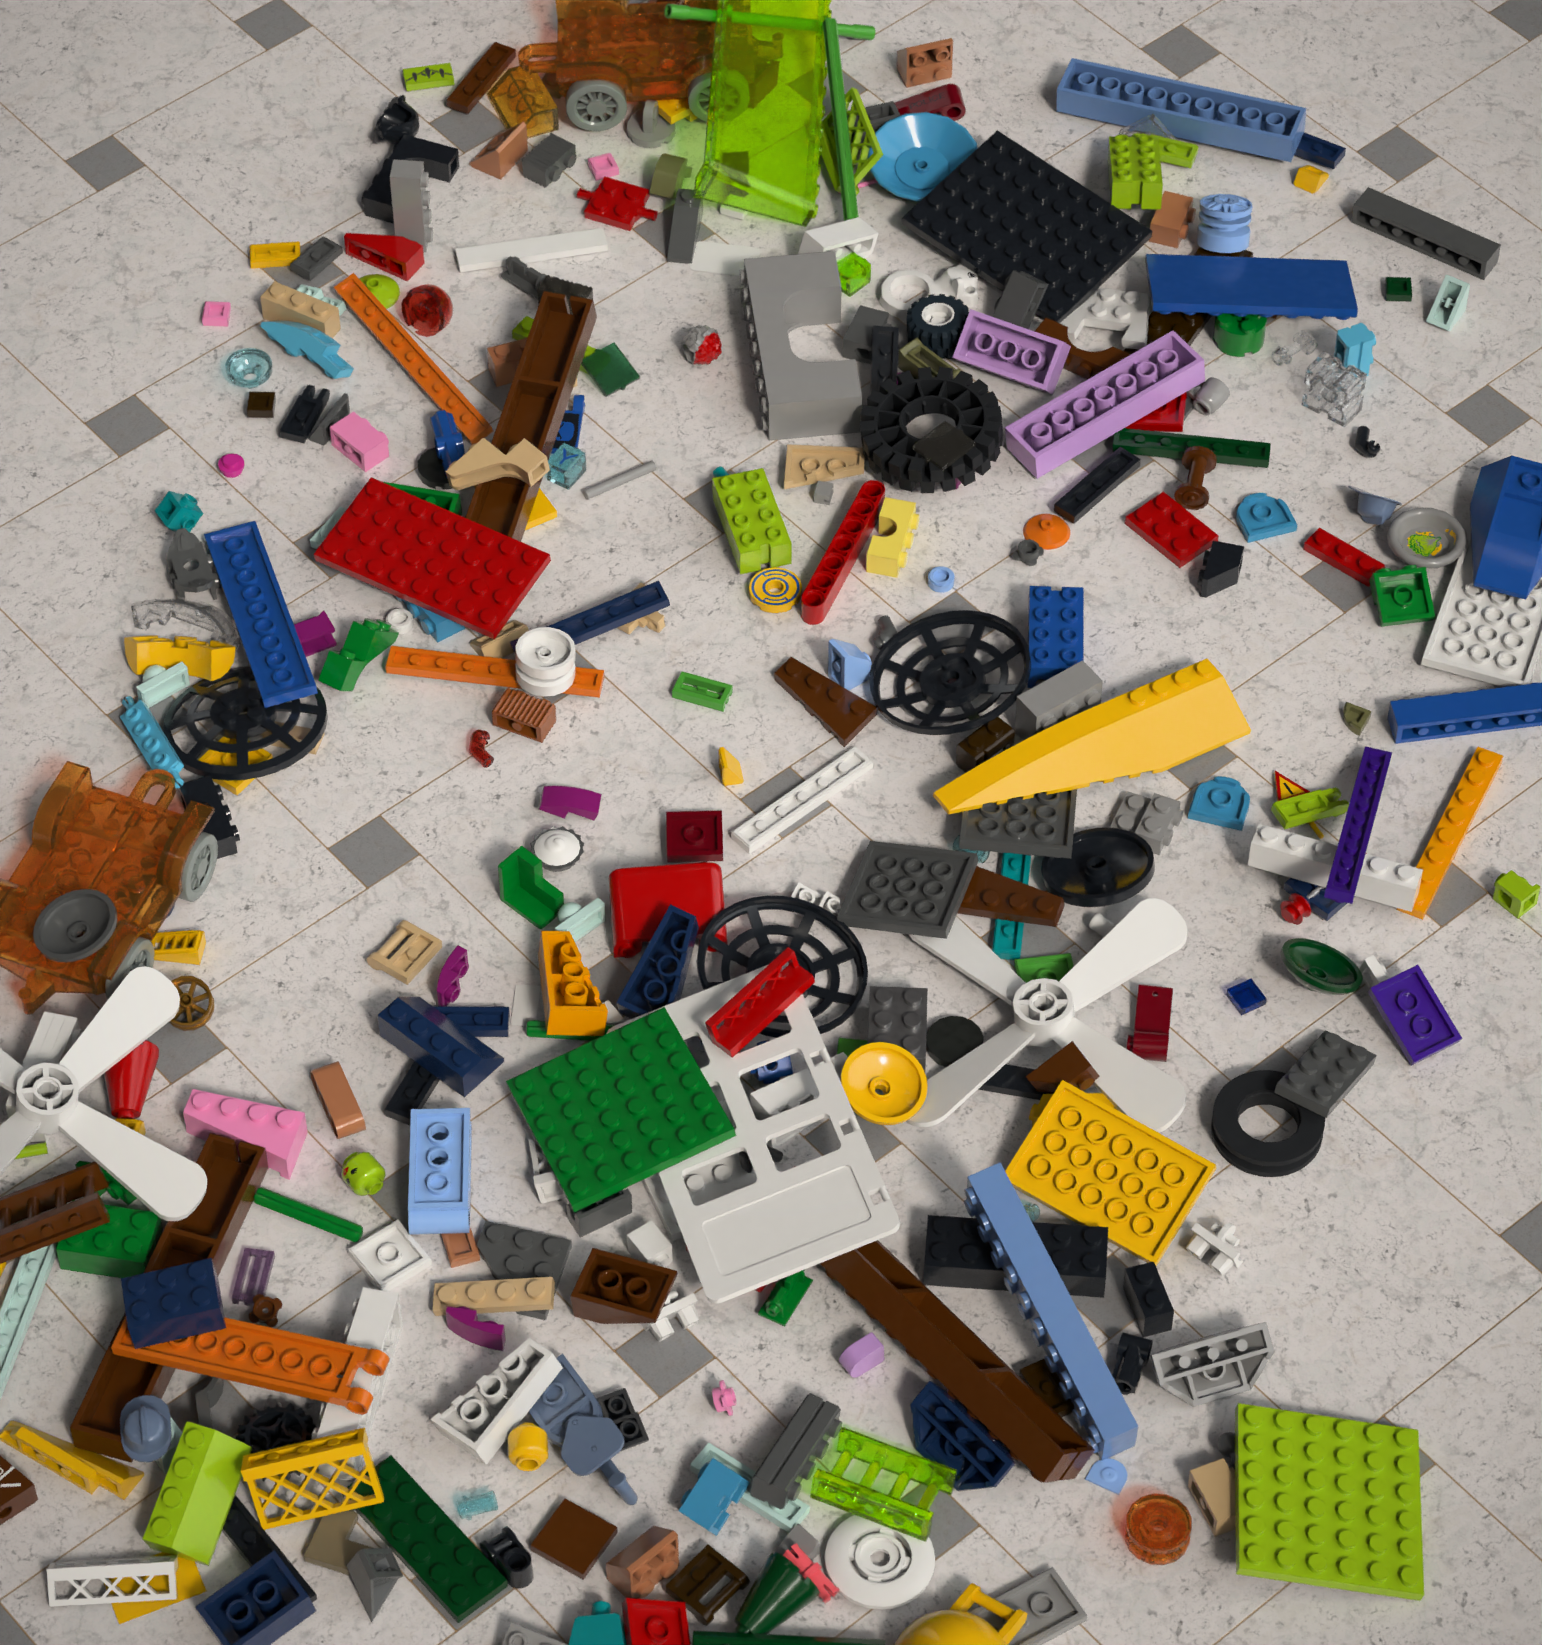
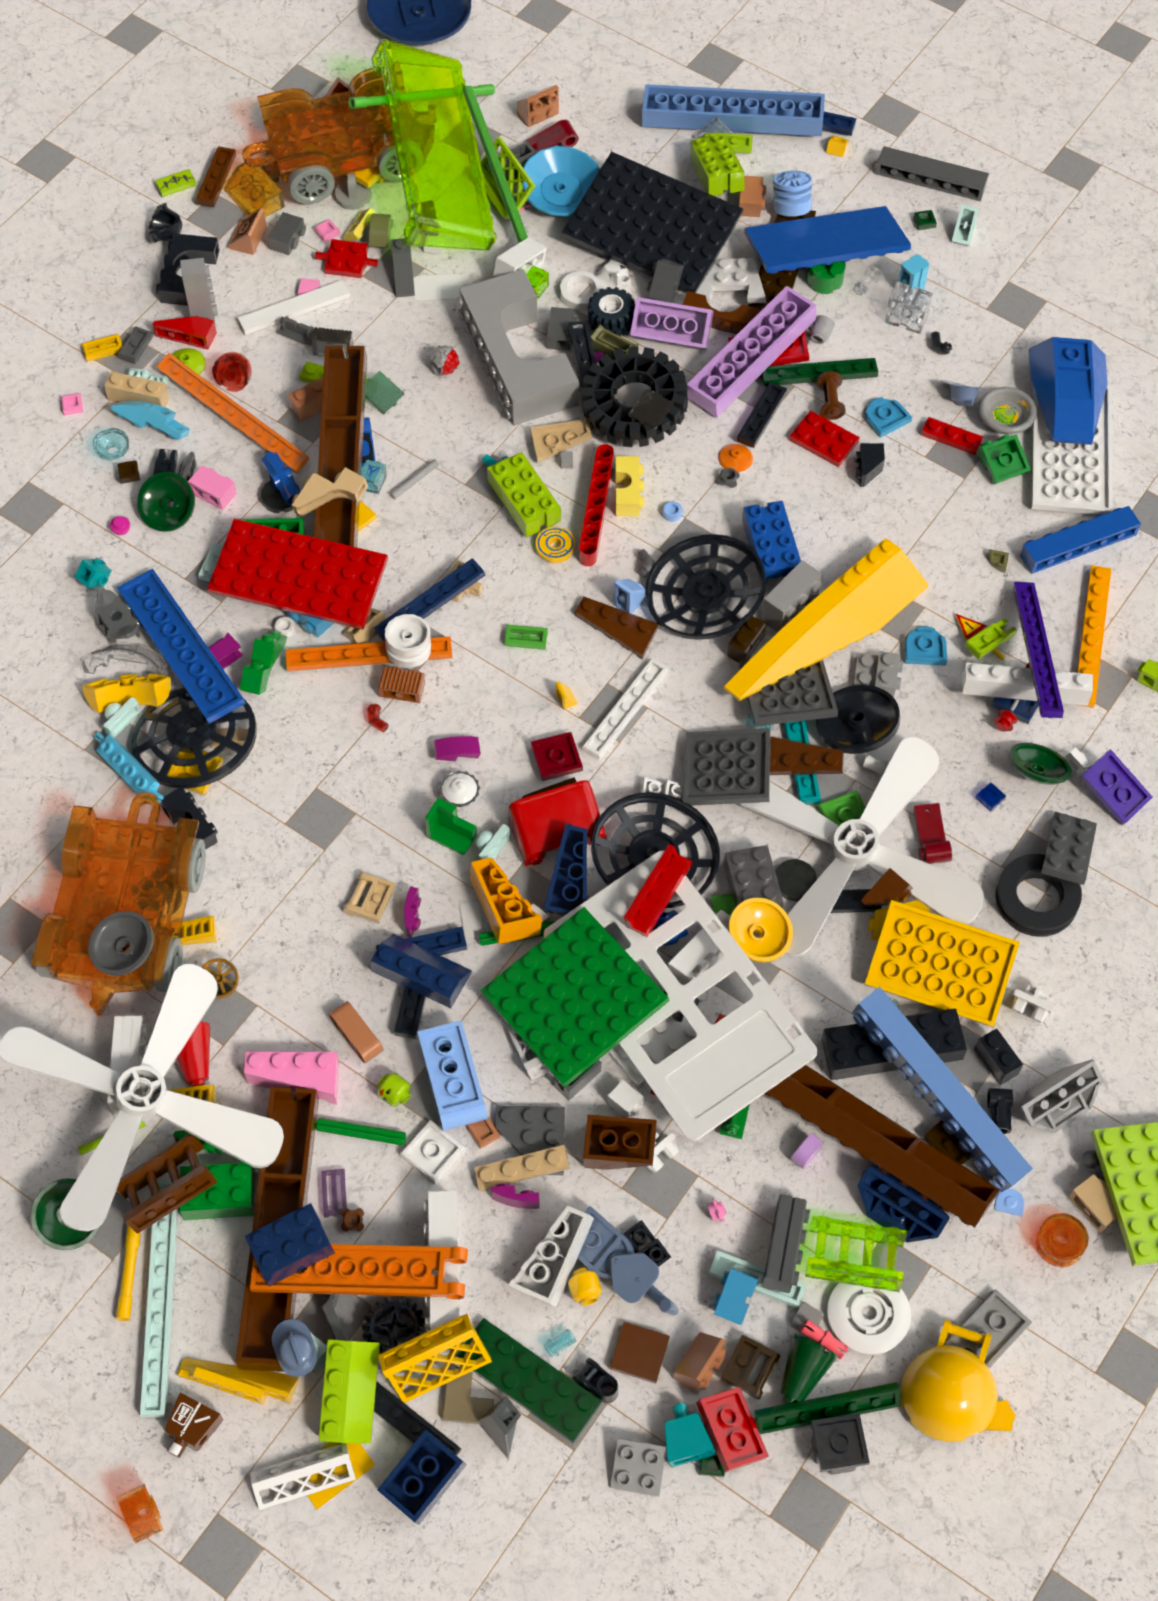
camera: 15 degrees left, 10 degrees up
(284, 440) = (155, 499): none -> dark green dish
(557, 226) = (308, 285): none -> bright pink tile
(639, 172) = (356, 229): none -> light yellow plate

